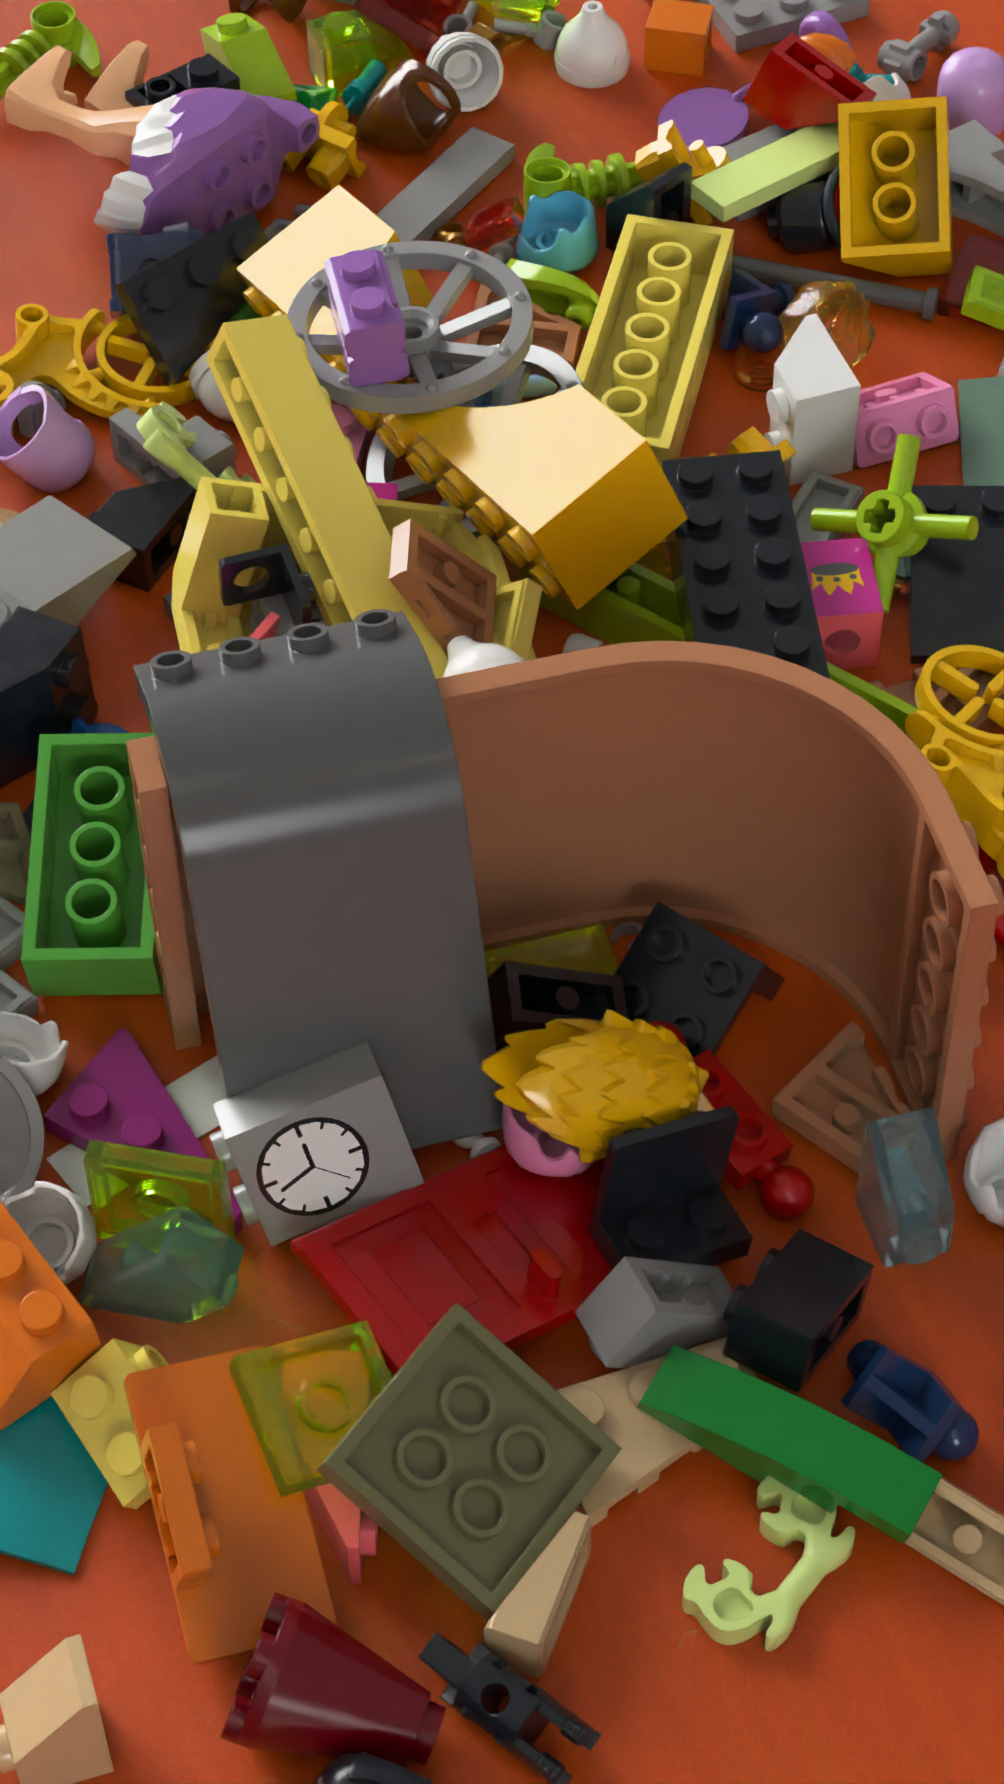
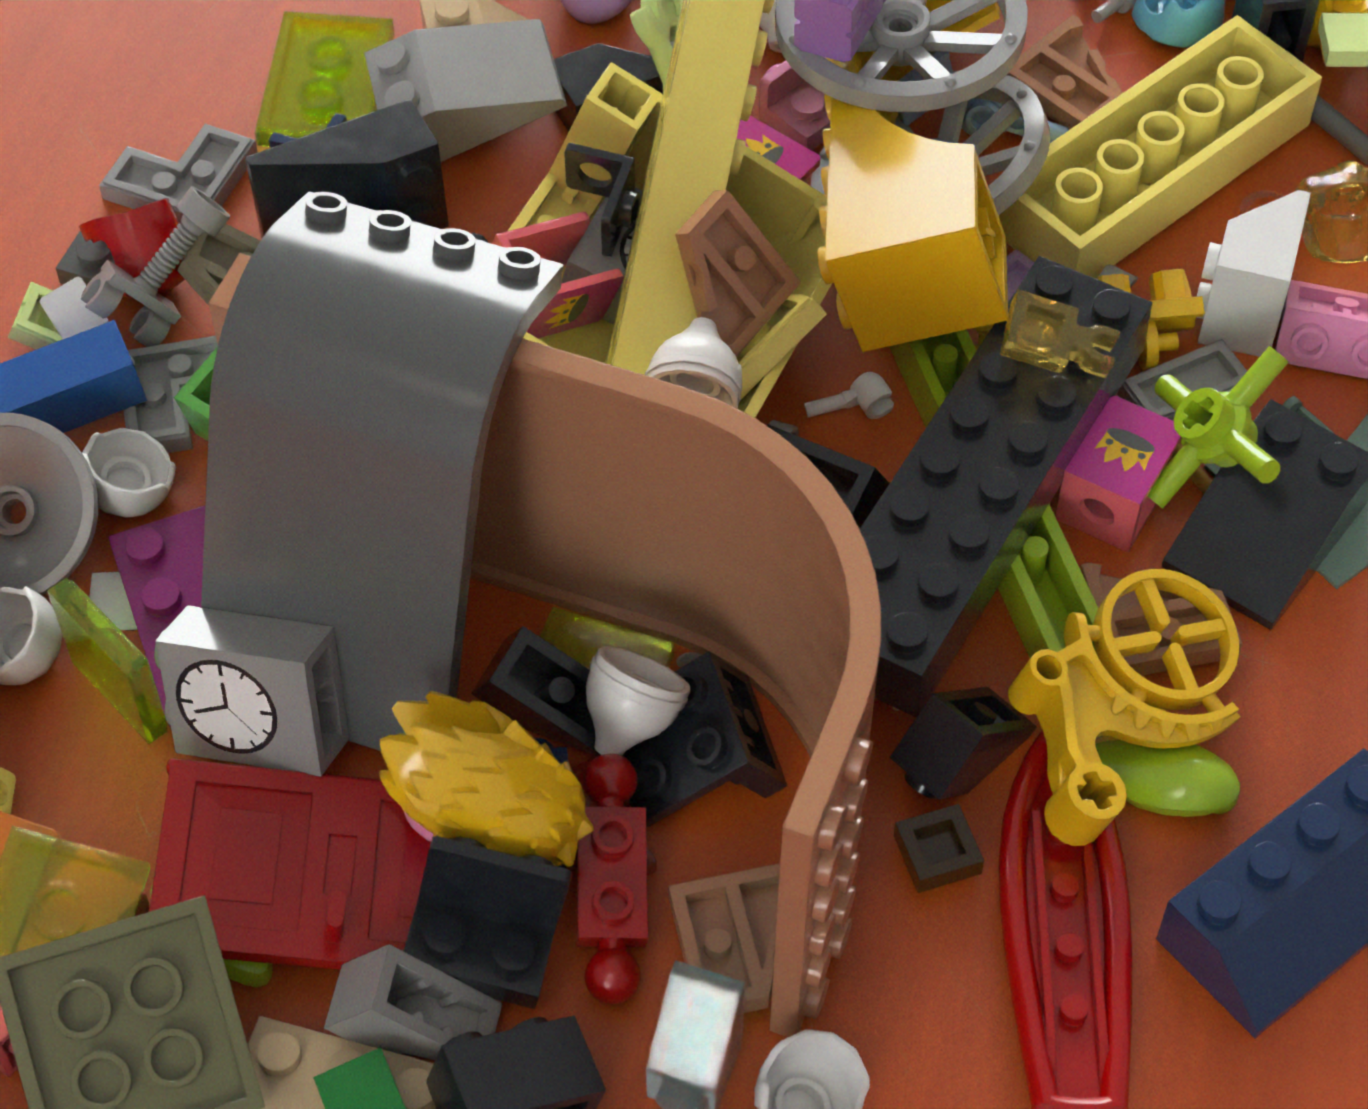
camera: 35 degrees right, 5 degrees up
(164, 1269) = (80, 722): clear light blue slope -> none
(557, 292) = (1125, 49): lime arm -> none
(636, 969) = (631, 698): none -> white helmet
(739, 509) = (1048, 336): none -> clear yellow plate
(752, 311) = (1287, 160): dark blue piece -> none

